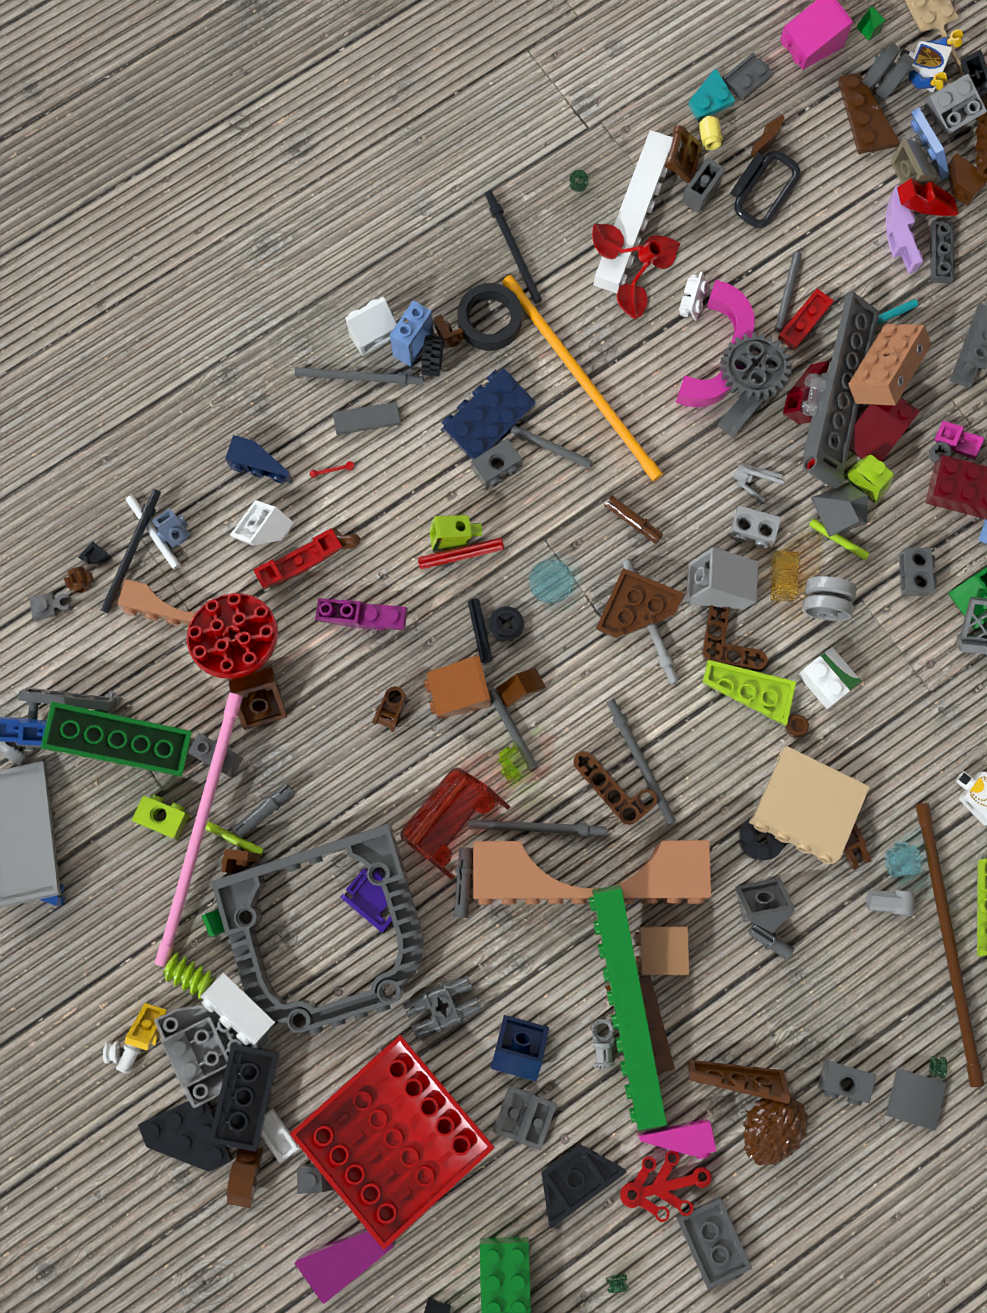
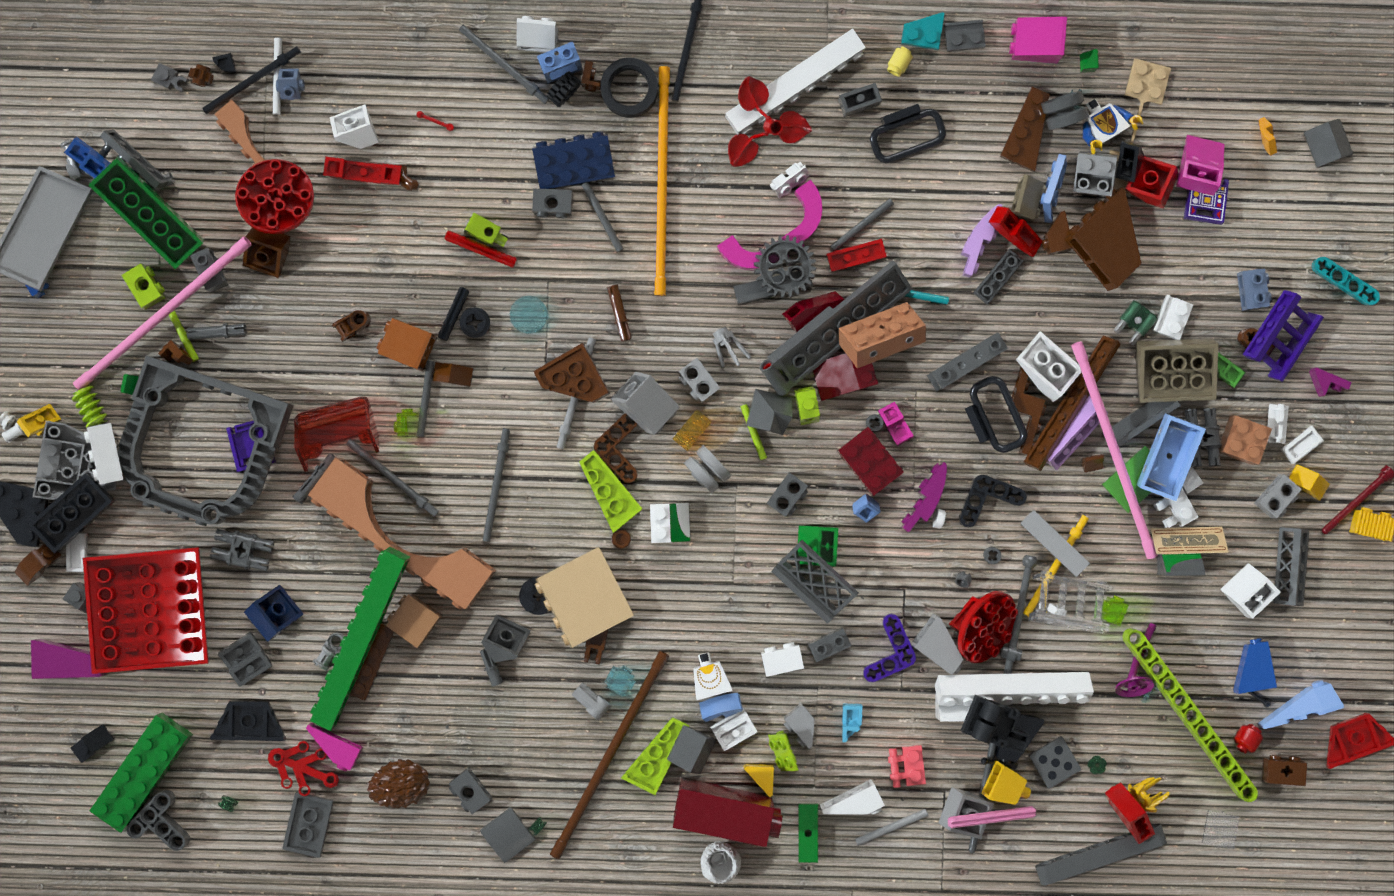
camera: 35 degrees right, 10 degrees up
(250, 457) = (384, 71): dark blue slope -> none
(361, 615) = (378, 243): magenta slope -> none
(366, 418) = (486, 100): dark grey tile -> none
(581, 175) = (770, 23): clear green bush -> none
(611, 784) = (463, 486): reddish brown beam -> none
(688, 157) = (867, 68): reddish brown plate -> none
(744, 1079) = (404, 741): reddish brown wing -> none
(769, 136) = (945, 94): reddish brown slope -> none
(816, 385) = (816, 310): clear bar -> none

